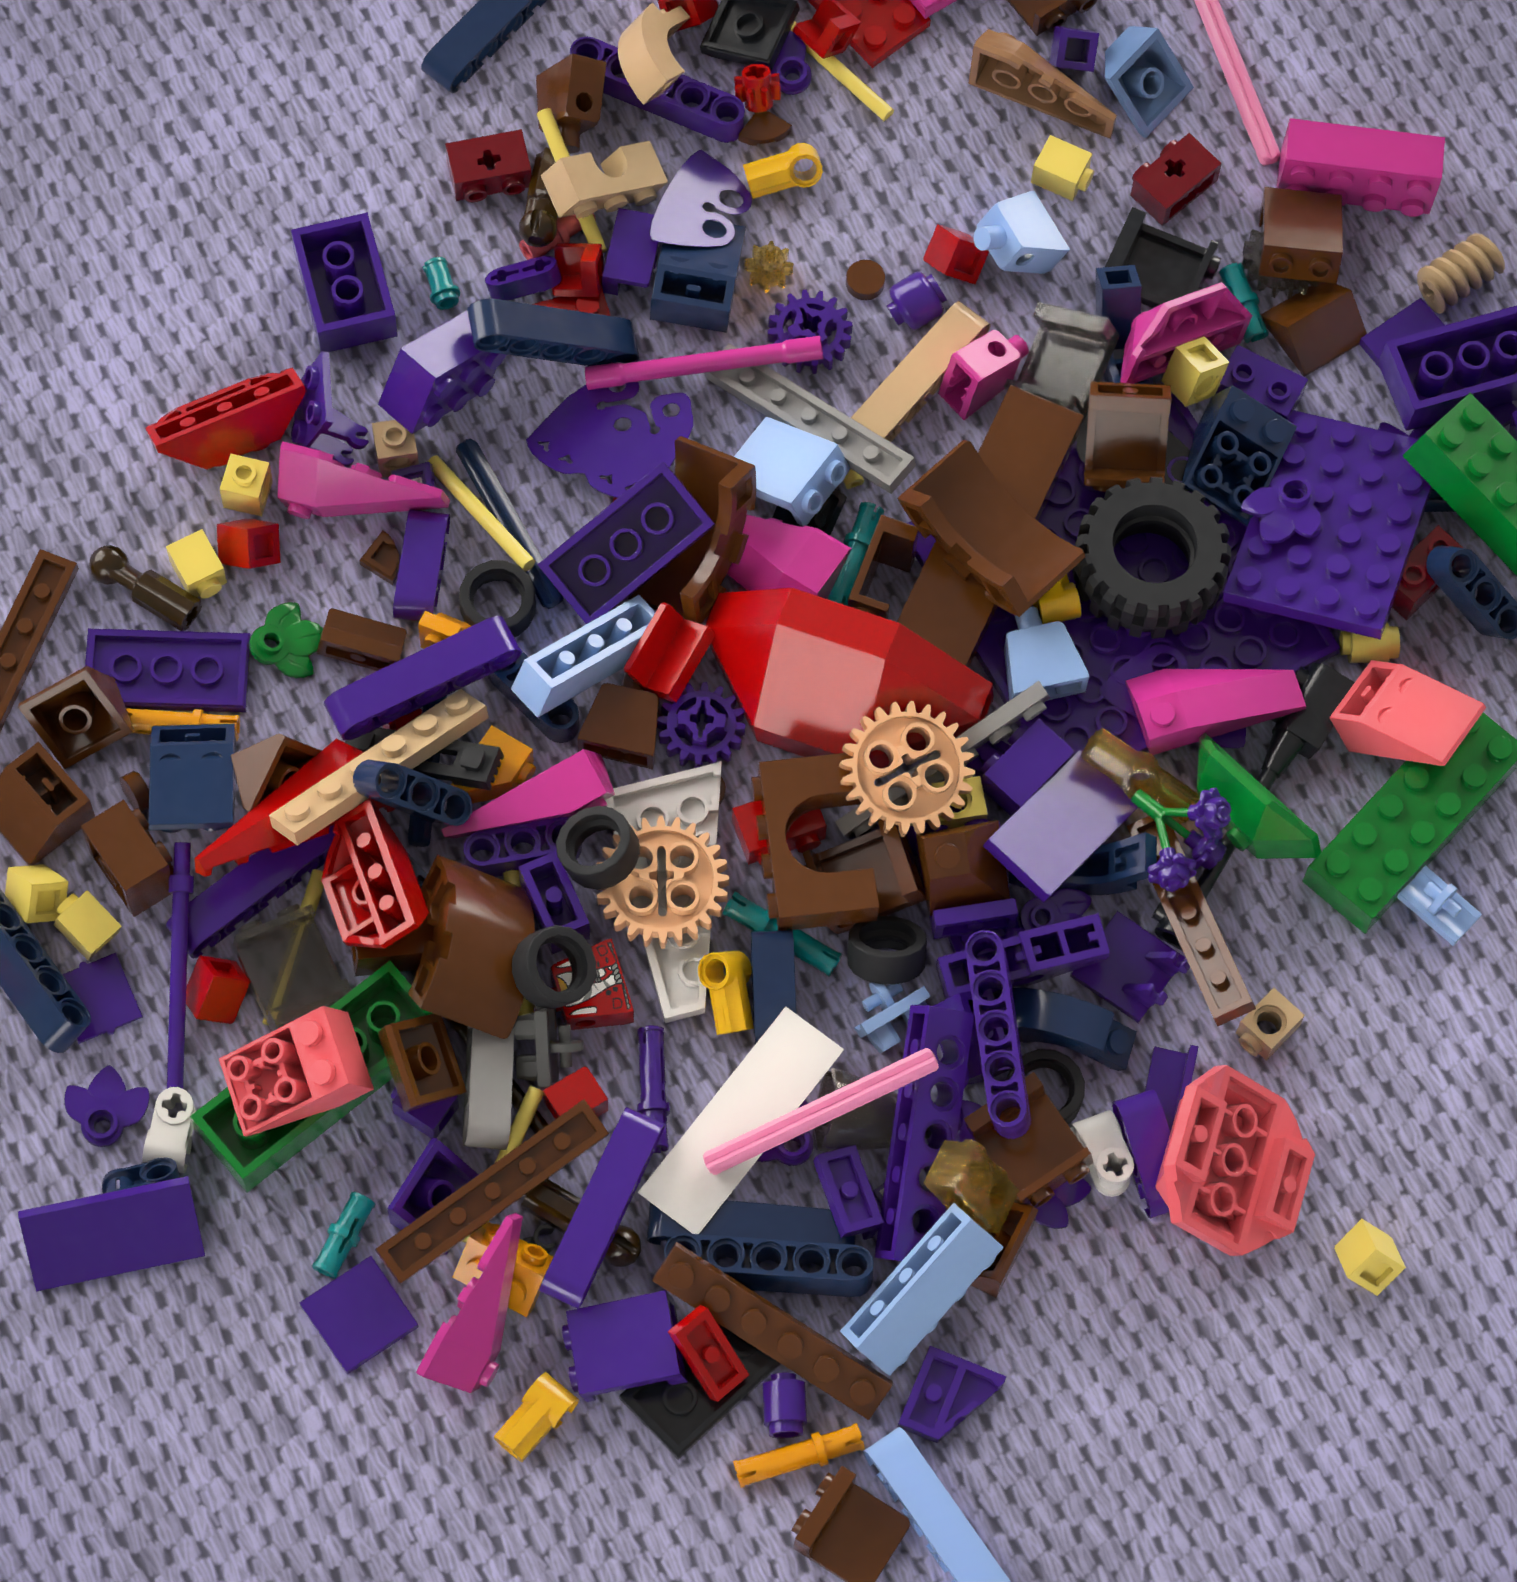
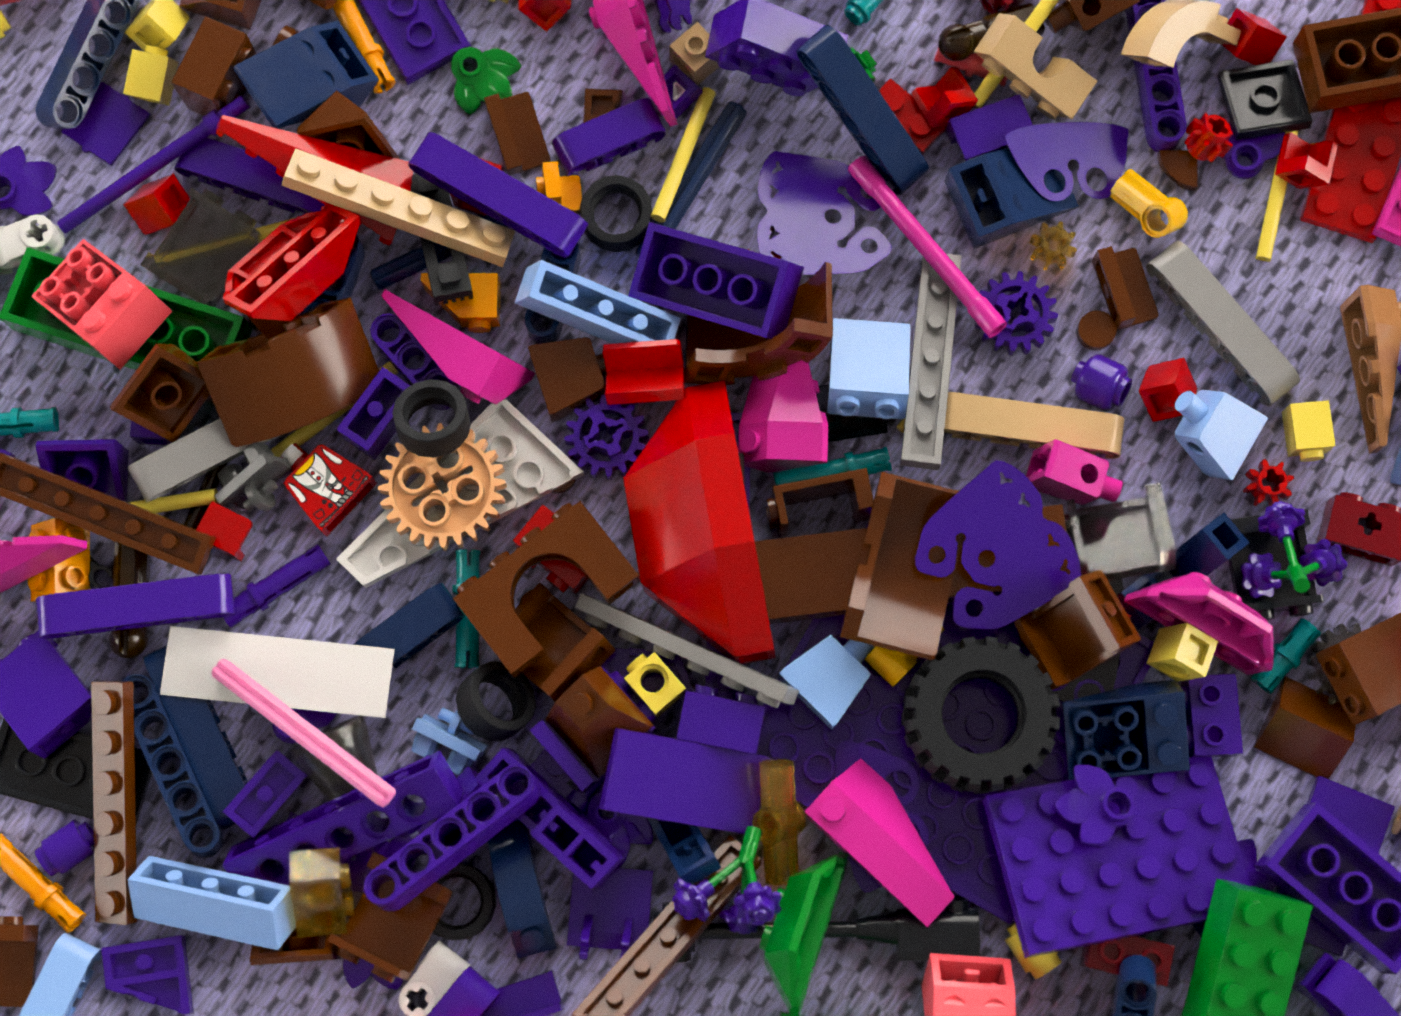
camera: 65 degrees right, 10 degrees up
(397, 788) = (387, 229): dark blue beam -> none
(523, 278) = (911, 61): dark purple beam -> none
(580, 958) = (309, 475): black tyre -> none
(708, 1353) = (63, 762): red plate -> none
(728, 992) = (394, 586): yellow piece -> none
(841, 235) = (1124, 287): none -> reddish brown panel
(889, 736) = (626, 657): light nougat gear -> none
(925, 176) = (1224, 322): none -> light grey beam
(1017, 429) = (1014, 533): none -> dark purple piece
(1085, 236) = (1272, 474): none -> red gear
(1182, 226) = (1319, 563): none -> dark purple plant

